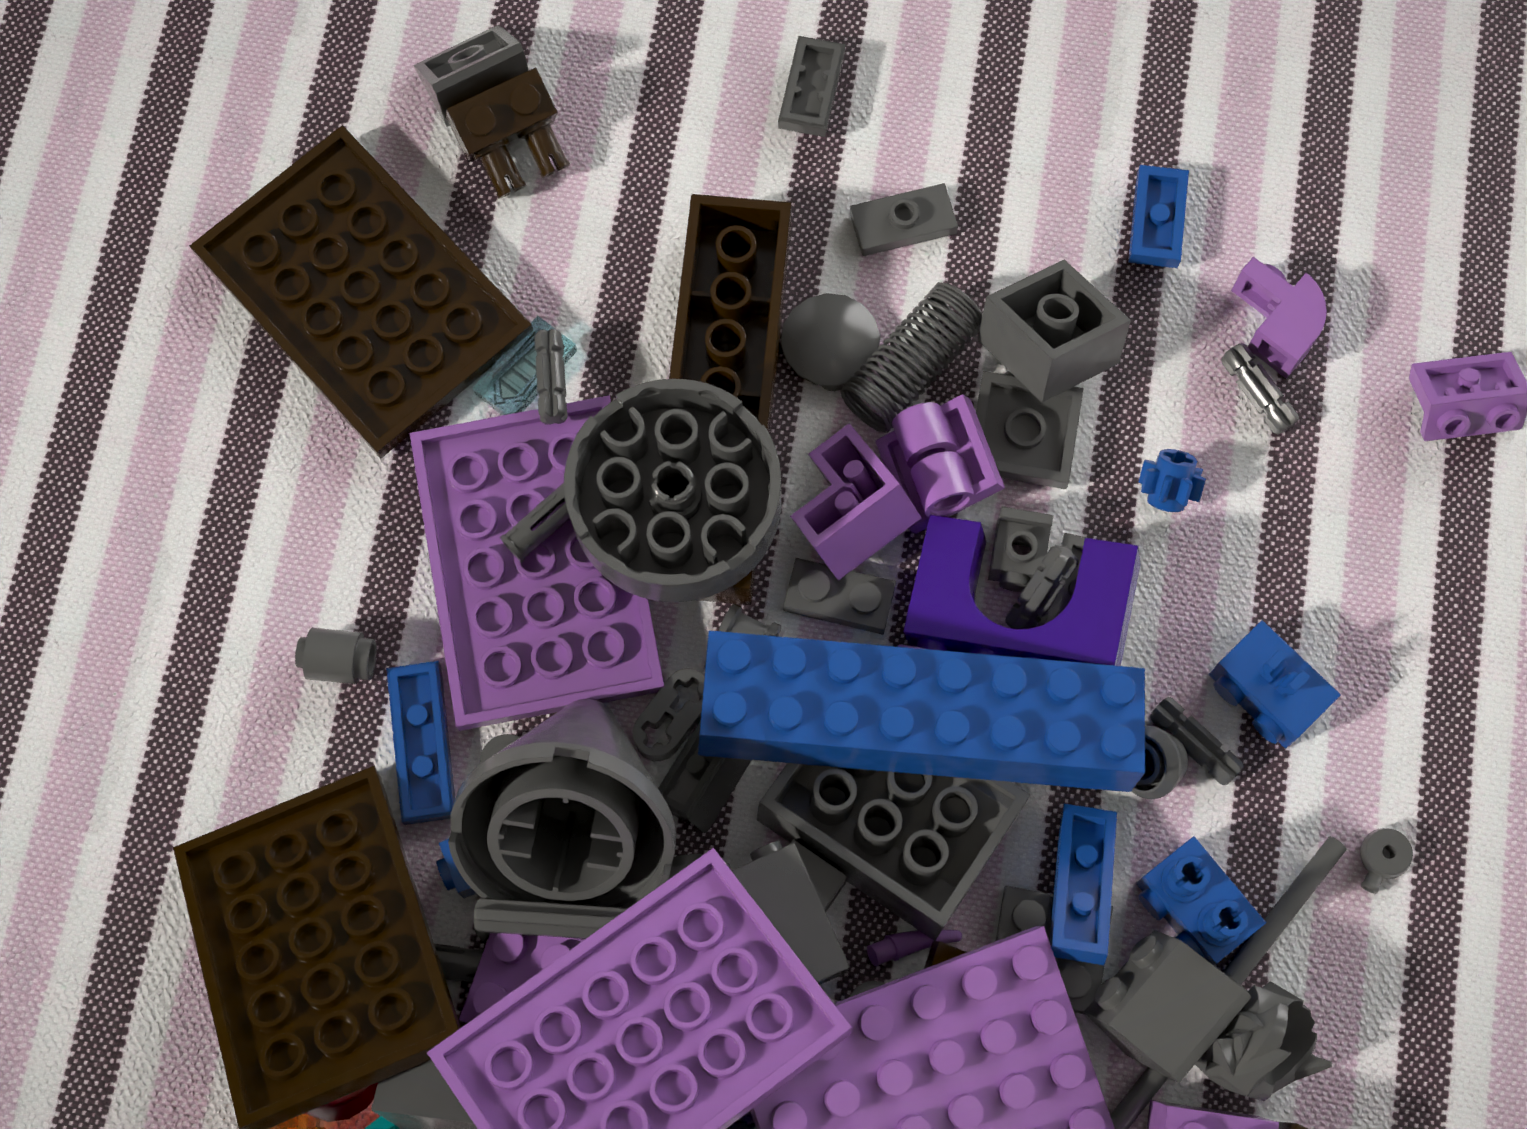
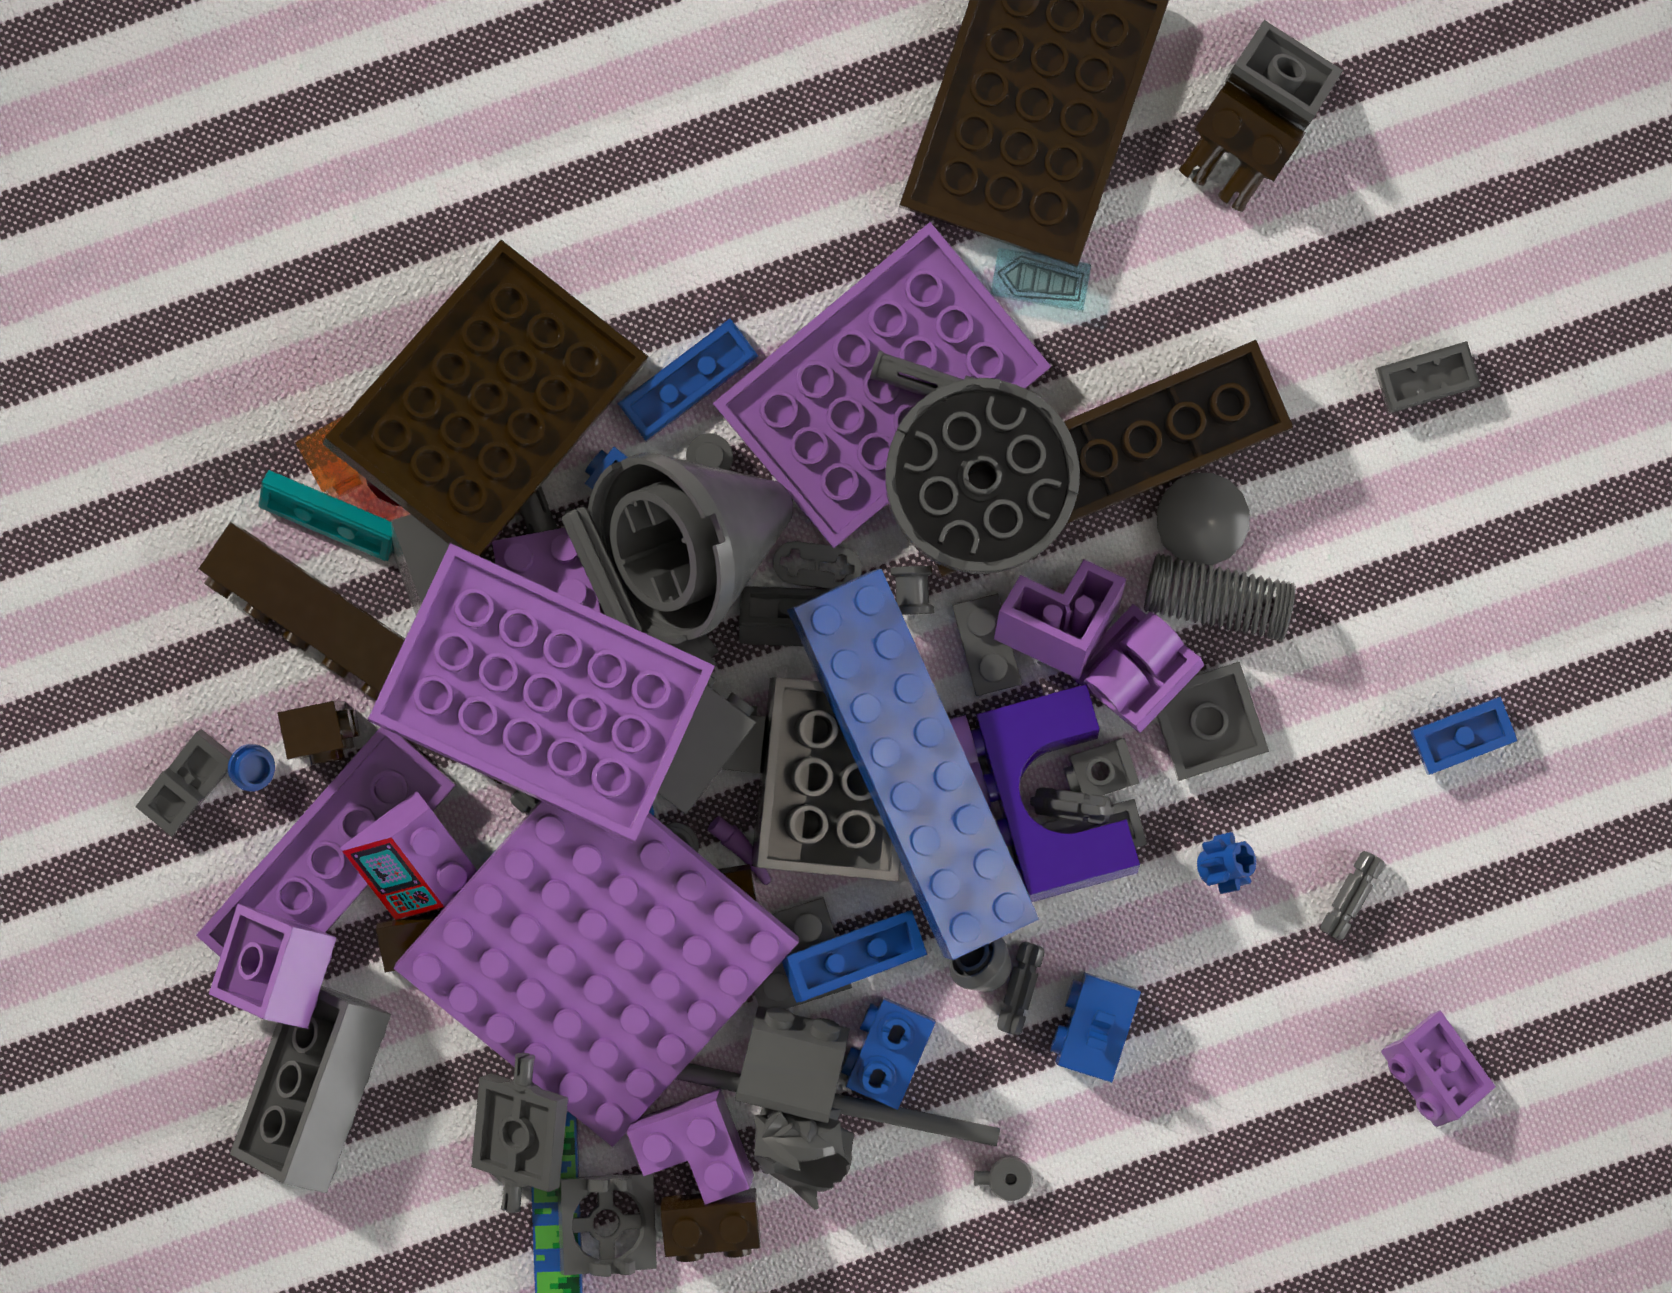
camera: 60 degrees right, 15 degrees up
(336, 656) = (717, 273): dark grey brick -> none
(550, 377) = (1038, 310): dark grey axle -> none
(903, 219) = (1346, 521): dark grey plate -> none
(1053, 330) = (1300, 702): dark grey brick -> none
(1291, 312) = (1428, 895): medium lavender brick -> none

